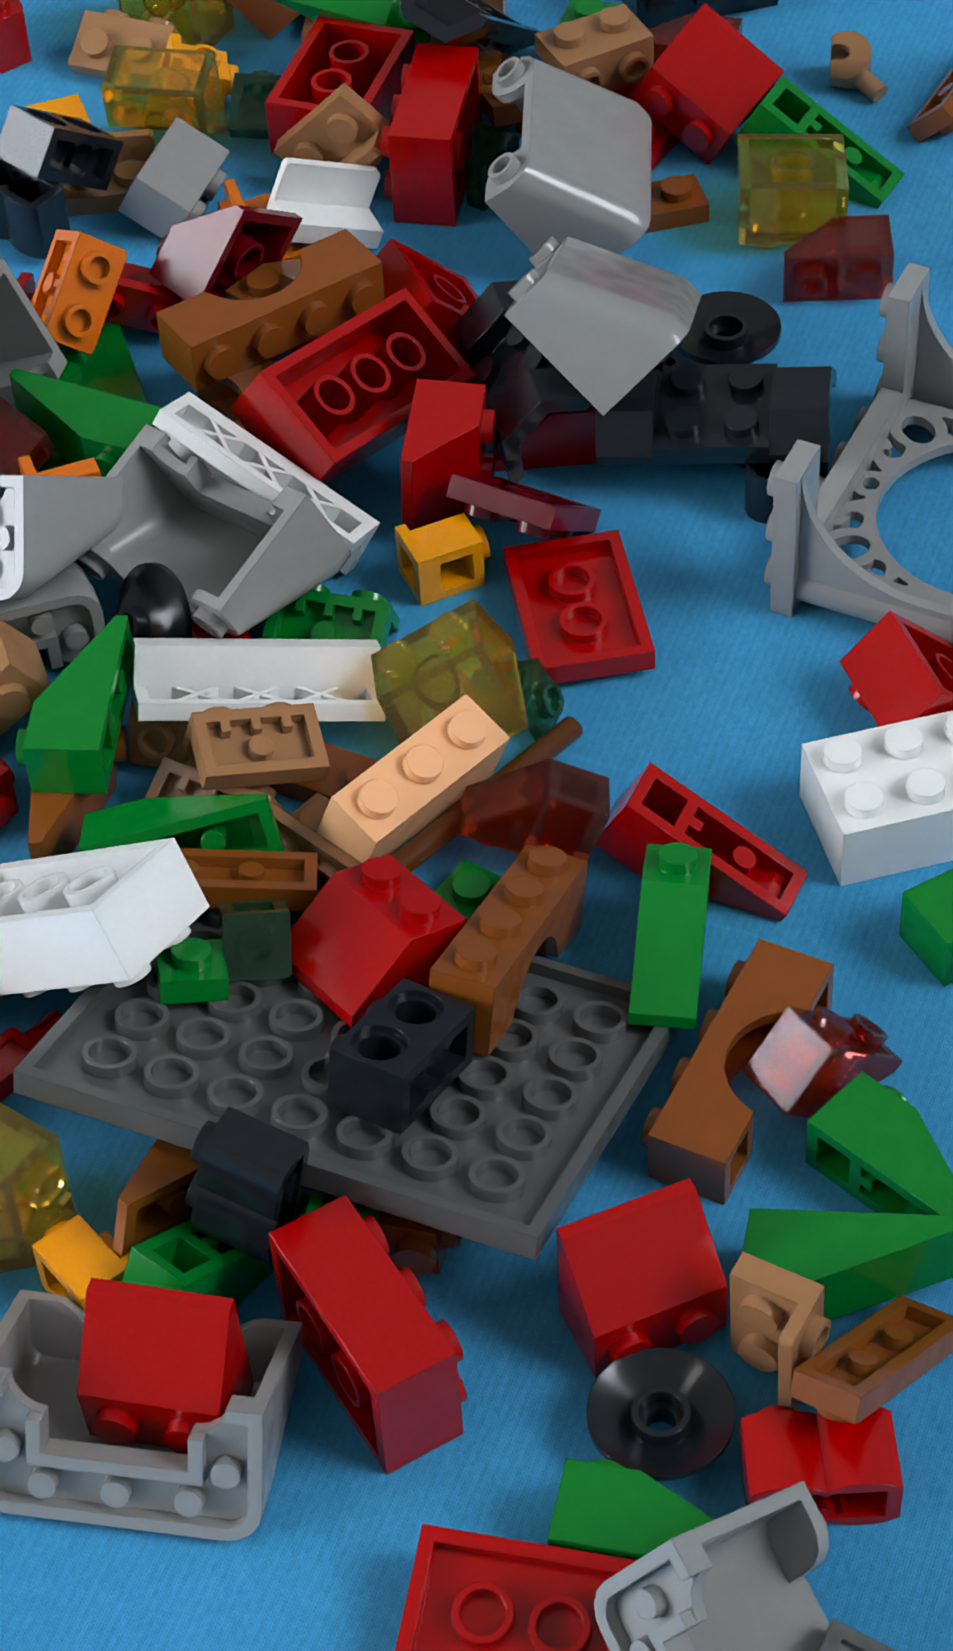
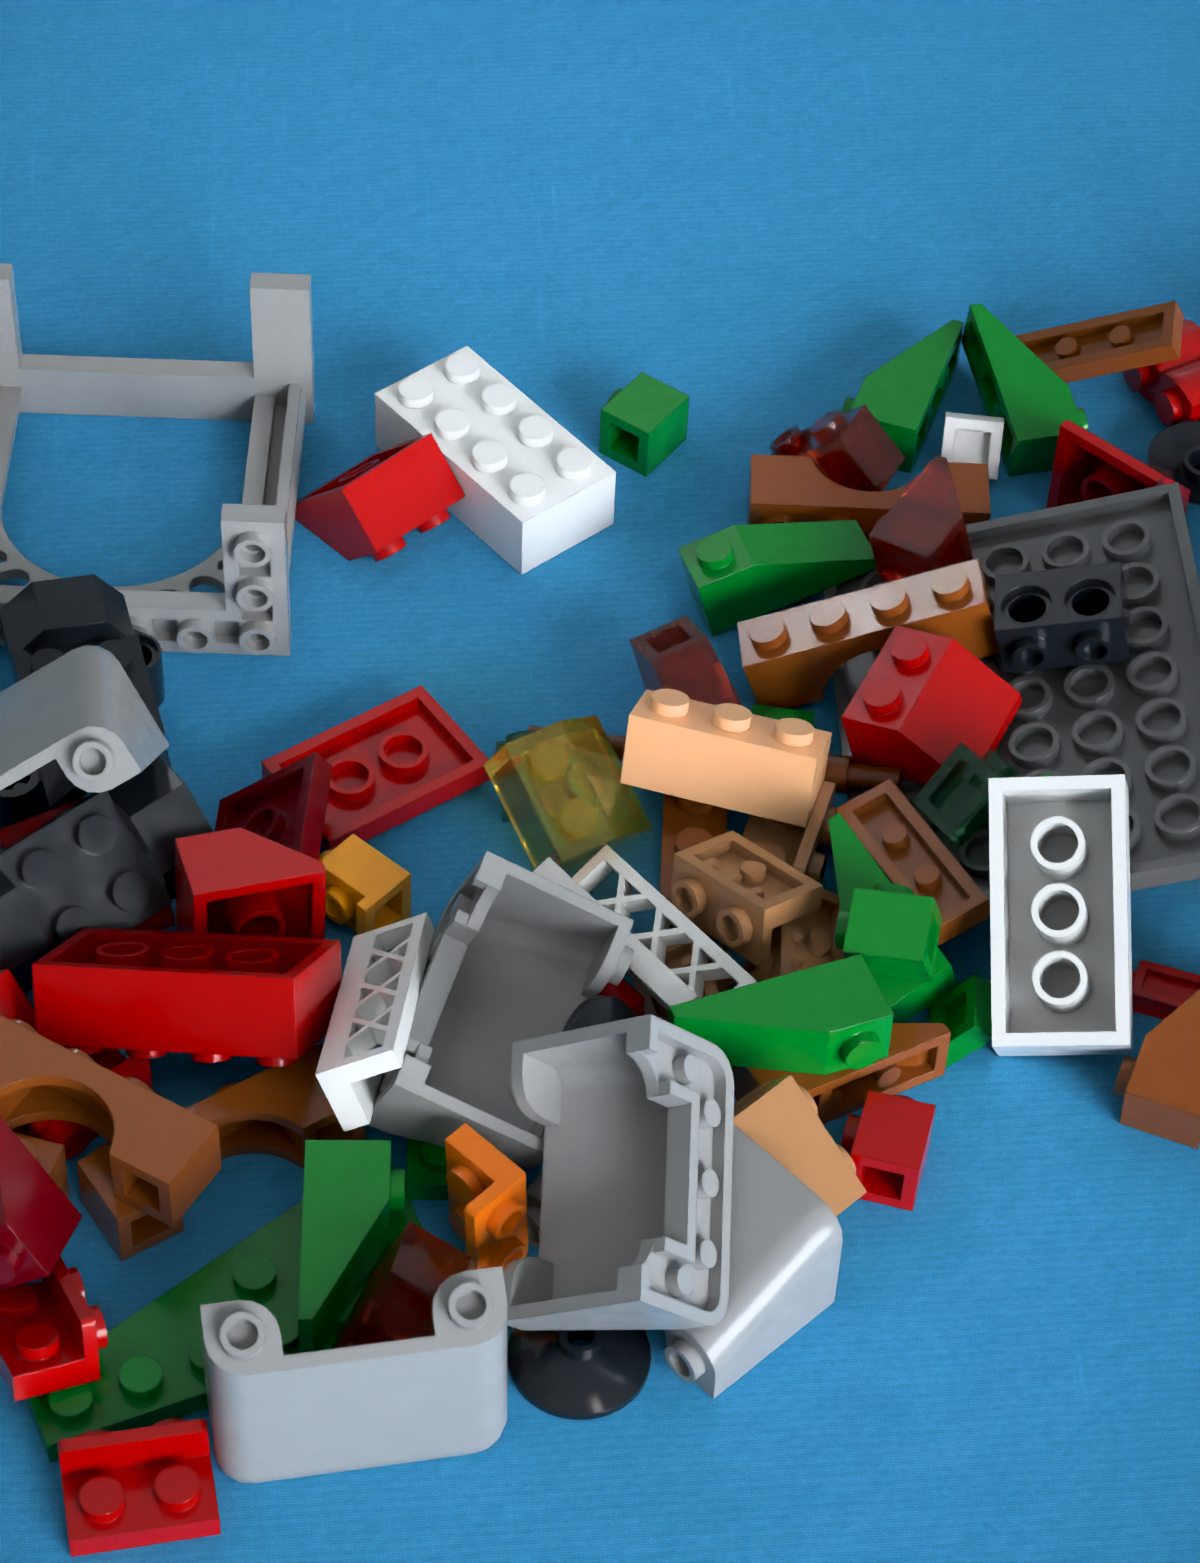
camera: 120 degrees left, 0 degrees up
(77, 288) = (113, 1348): orange bracket -> none
(115, 793) = (891, 931): none -> green brick
(614, 1033) = (922, 528): none -> clear red slope
(743, 866) = (649, 586): red slope -> none
(775, 1319) = (1121, 386): medium nougat bracket -> none
(800, 1186) = (973, 440): none -> white plate

